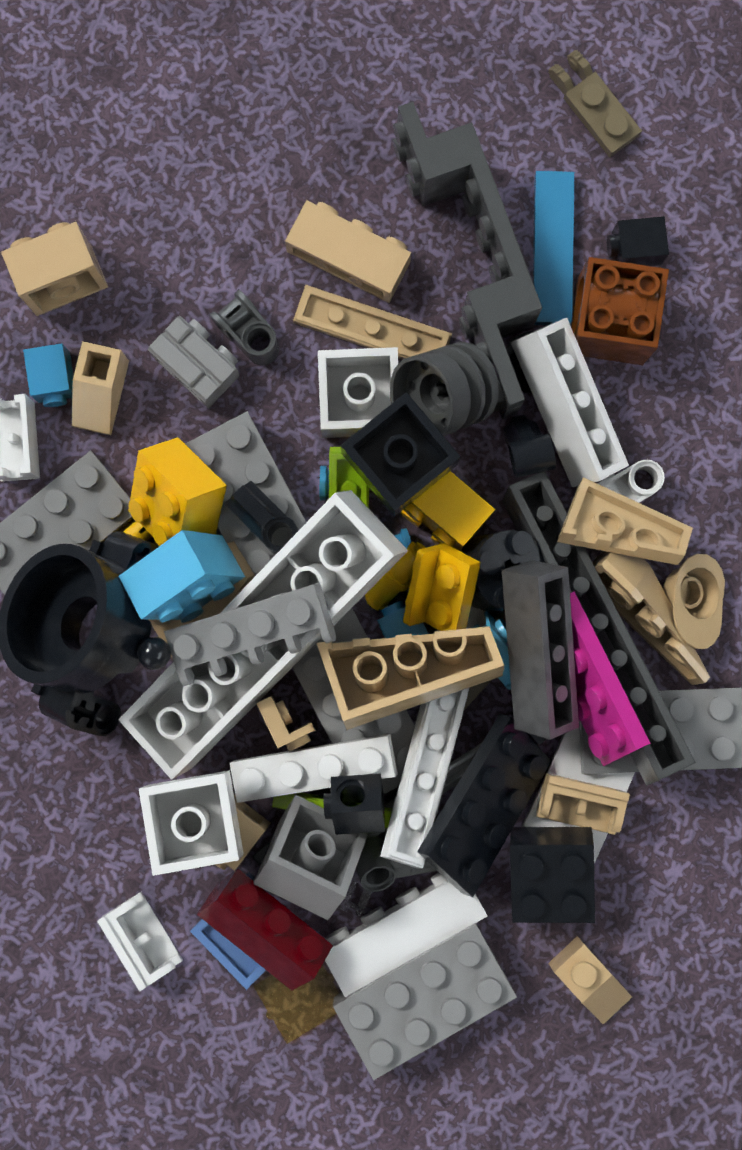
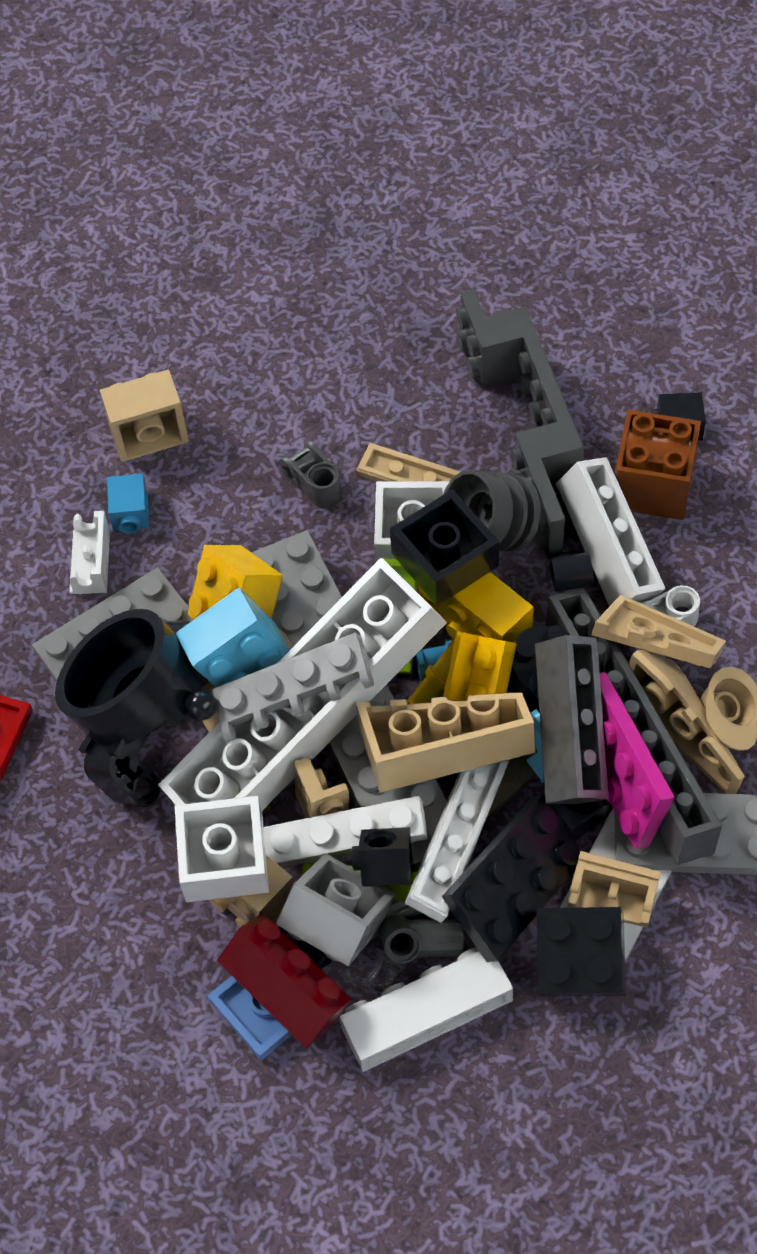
camera: 10 degrees right, 25 degrees down
(97, 387) = (171, 512): tan slope -> none
(140, 941) = (155, 1004): white hinge -> none
(194, 360) = (262, 497): light grey brick -> none
(260, 514) = (306, 599): black piece -> none
(299, 1009) = (314, 1076): clear yellow piece -> none
(348, 250) = (411, 416): tan brick -> none
(424, 1001) = (443, 1072): light grey brick -> none
(553, 244) = (601, 411): dark azure tile -> none
(589, 980) = (621, 1068): tan slope -> none
(595, 105) = (642, 315): dark tan hinge -> none

